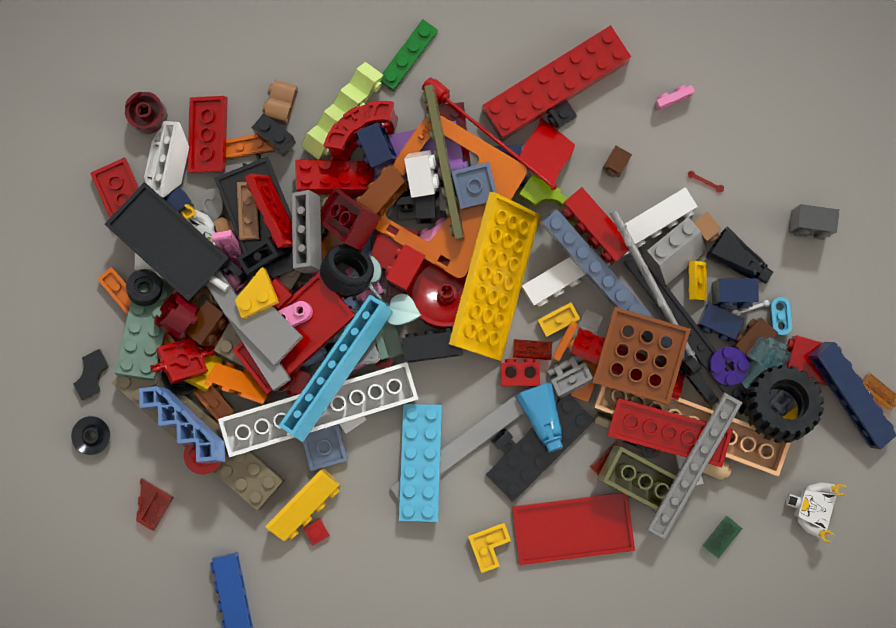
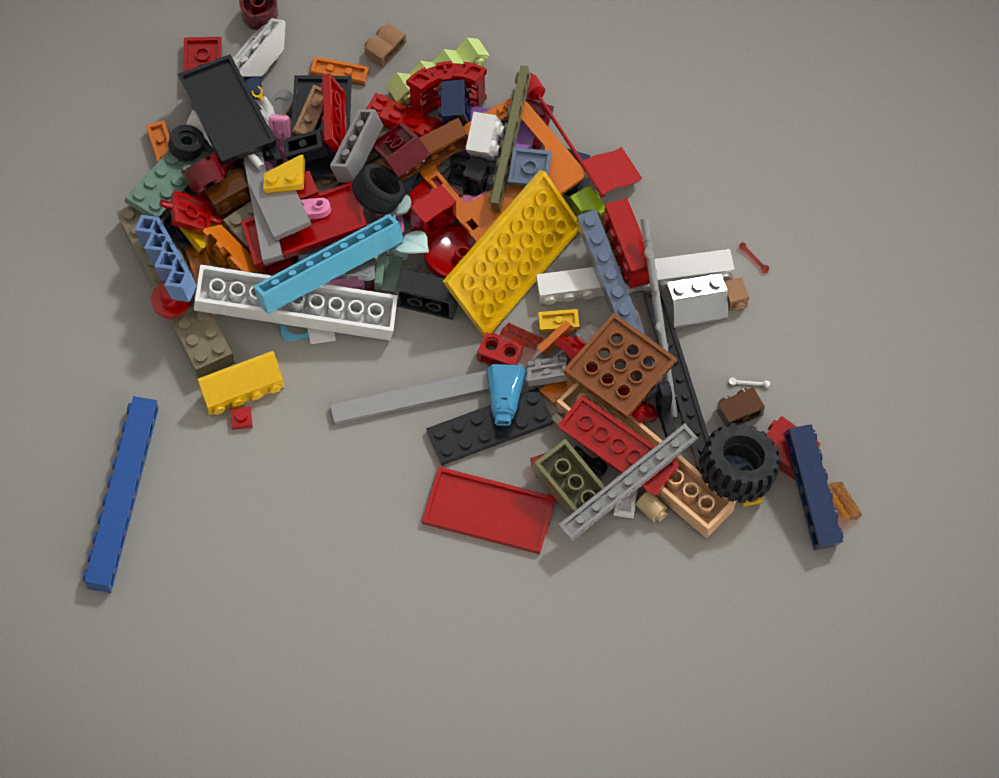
camera: 20 degrees right, 20 degrees down
(81, 435) = (73, 245): black dish -> none
(88, 383) = (105, 198): black tile -> none
(152, 504) = (100, 333): clear red wing -> none
(207, 134) = (305, 45): red plate -> none
(273, 134) = (365, 66): black brick -> none
(325, 448) = (286, 343): sand blue plate -> none
(408, 54) = (521, 50): green plate -> none
(420, 463) = (369, 393): medium azure plate -> none
(483, 545) = (397, 487): yellow plate -> none
(502, 439) = (457, 402): black tile -> none
(556, 83) = (647, 120): red brick -> none
(561, 115) = (640, 150): black bracket -> none
(616, 161) = (675, 207): reddish brown brick -> none
(680, 94) = (759, 173): bright pink plate -> none
(697, 281) = (707, 337): yellow plate -> none
(720, 322) = (713, 380): dark blue brick -> none
(722, 537) = (631, 572): clear green plate -> none
(728, 355) = (703, 408): dark purple plate -> none
(735, 292) = (737, 356): dark blue brick -> none
(736, 255) = (752, 325): black piece -> none
(770, 352) = (745, 412): clear light blue brick -> none
(782, 316) = (775, 400): medium azure plate -> none
(814, 221) = (841, 323): dark grey brick -> none
(815, 507) = (735, 578): white torso -> none

